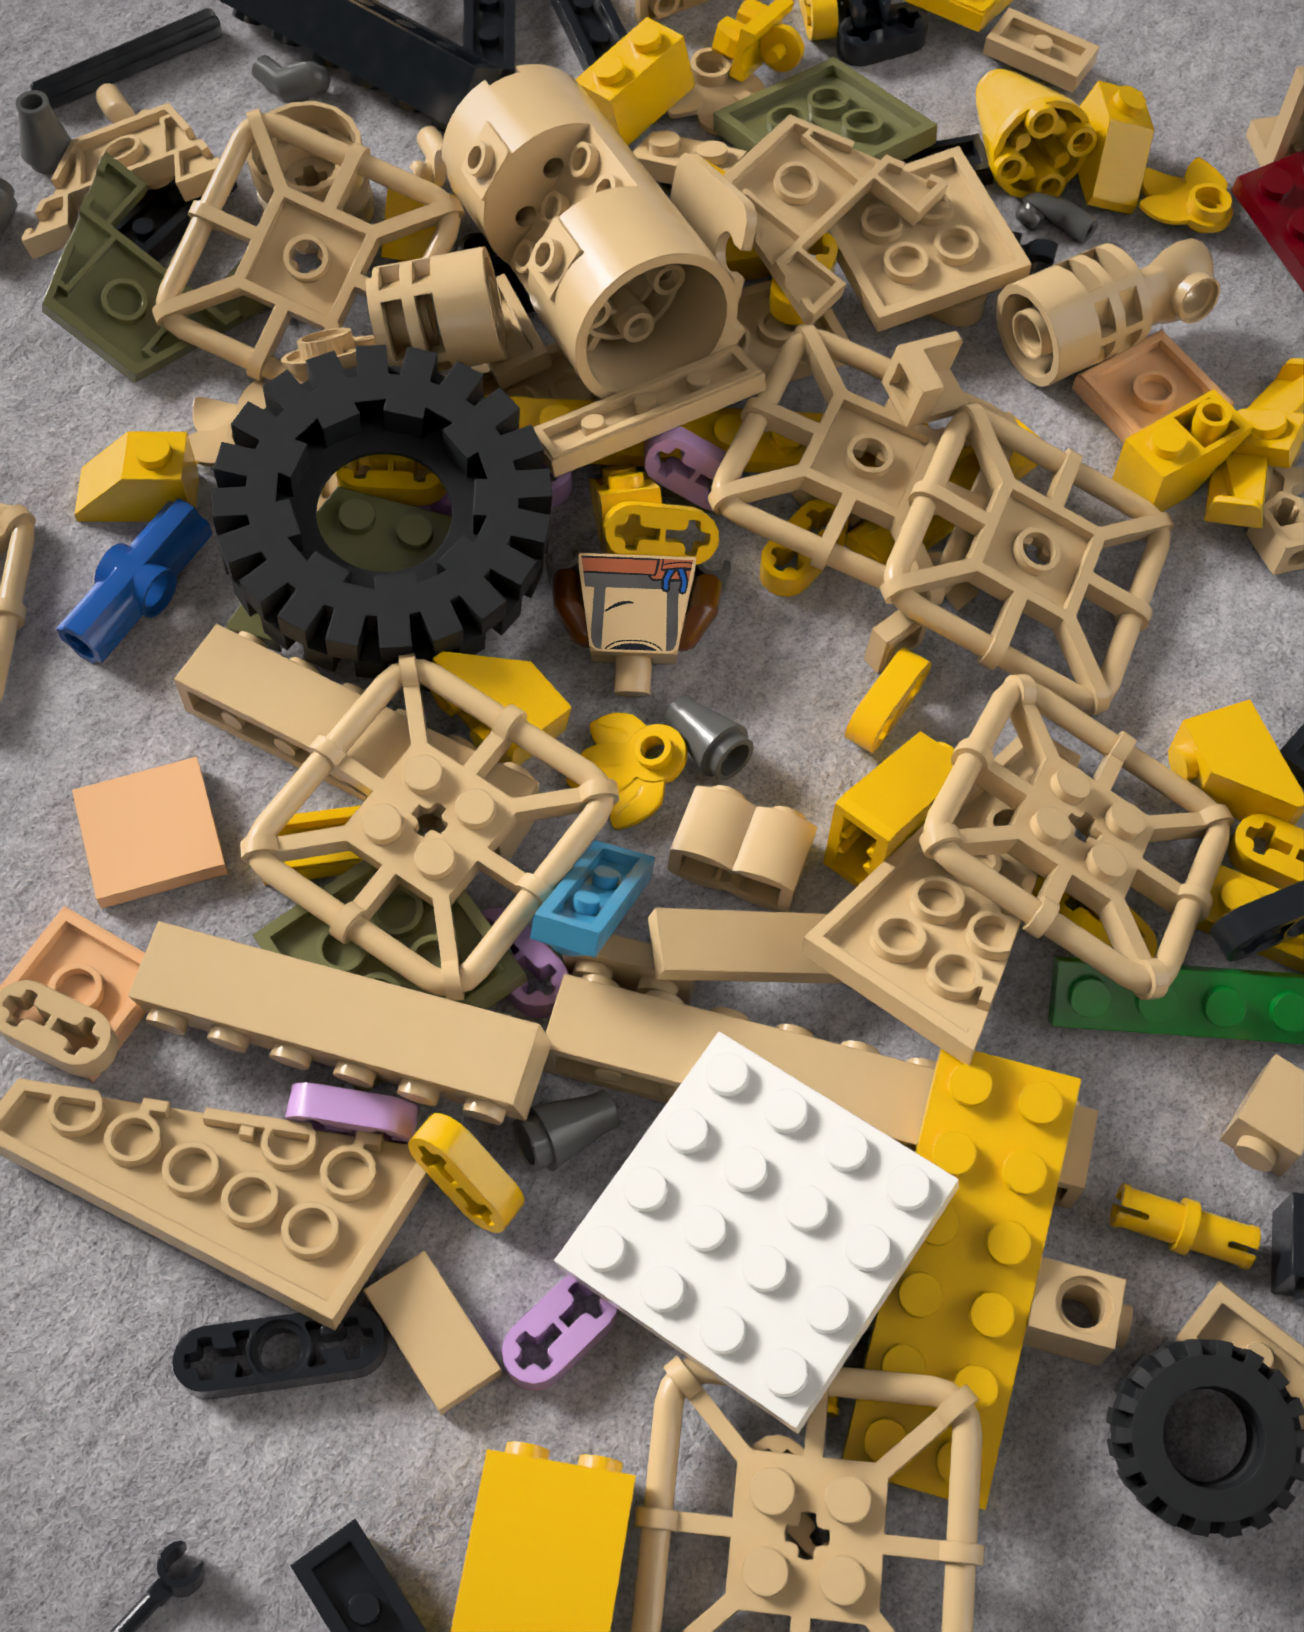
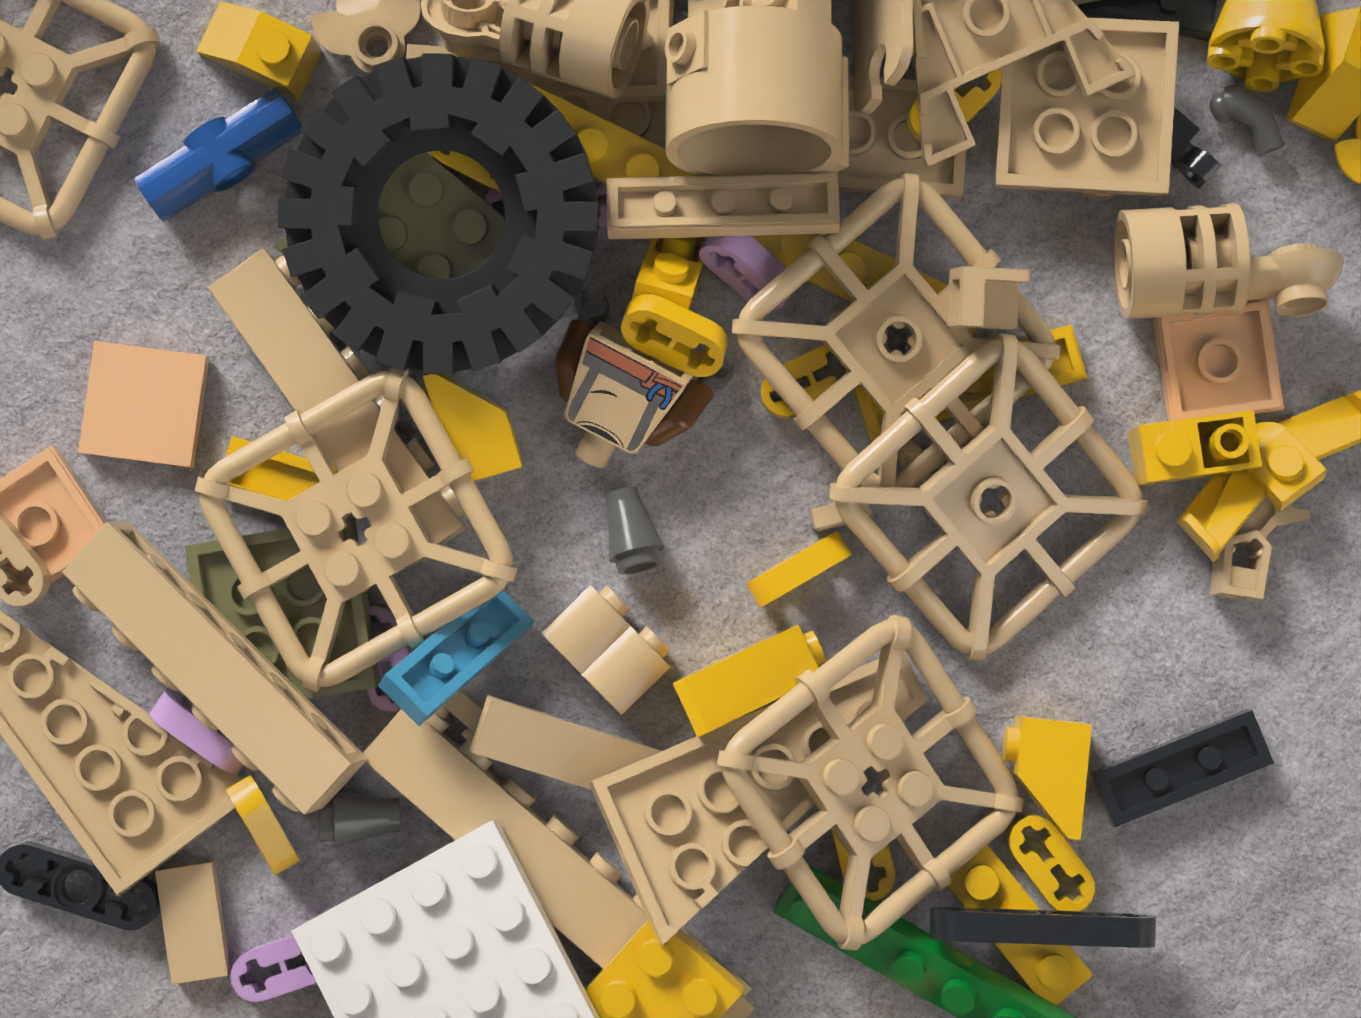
camera: 30 degrees right, 25 degrees up
(621, 753) = (545, 525): yellow plate -> none

